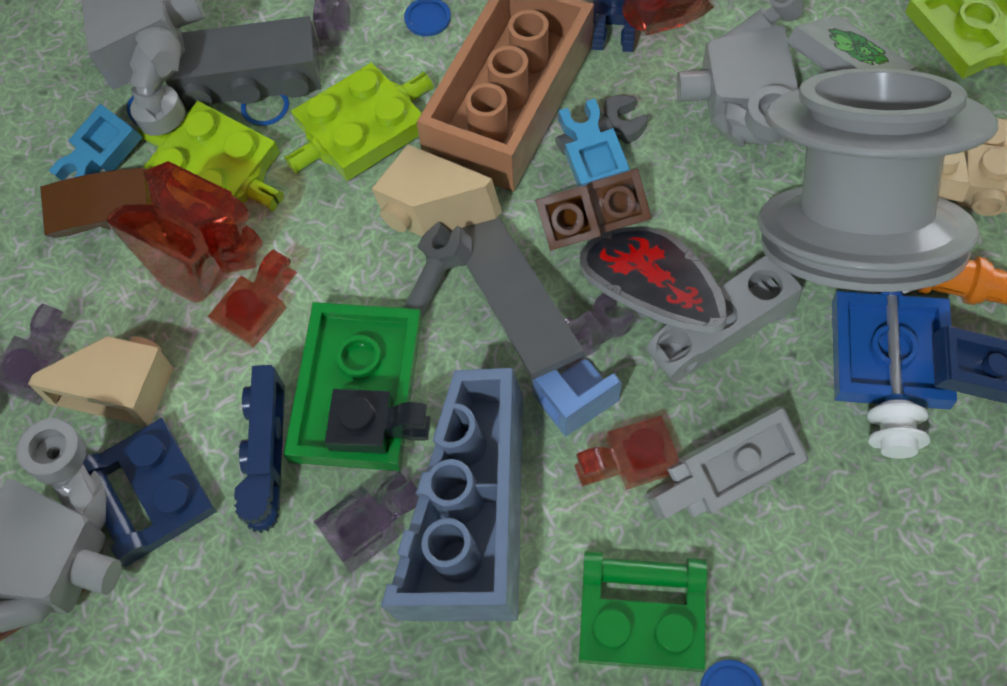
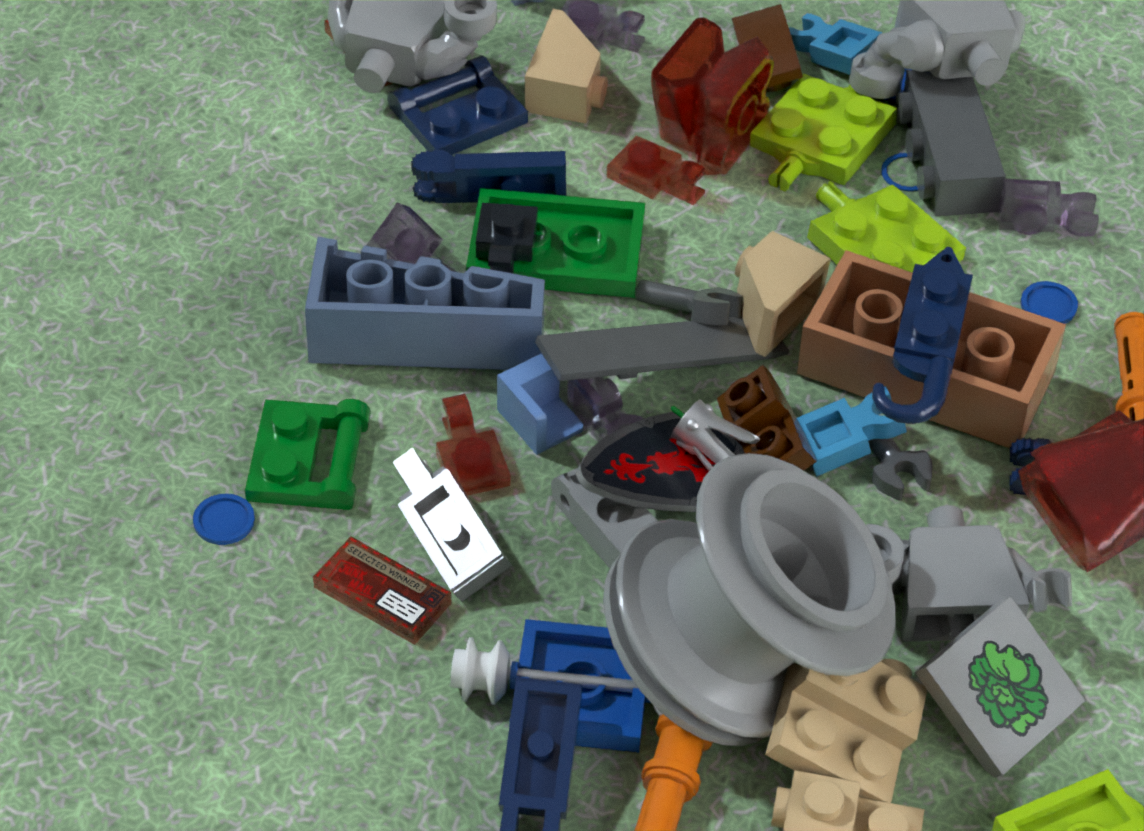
camera: 85 degrees right, 15 degrees down
(526, 59) = (928, 336): none -> dark blue plate
(620, 247) = (695, 434): none -> flat silver piece
(805, 527) = (382, 590): none -> clear red tile

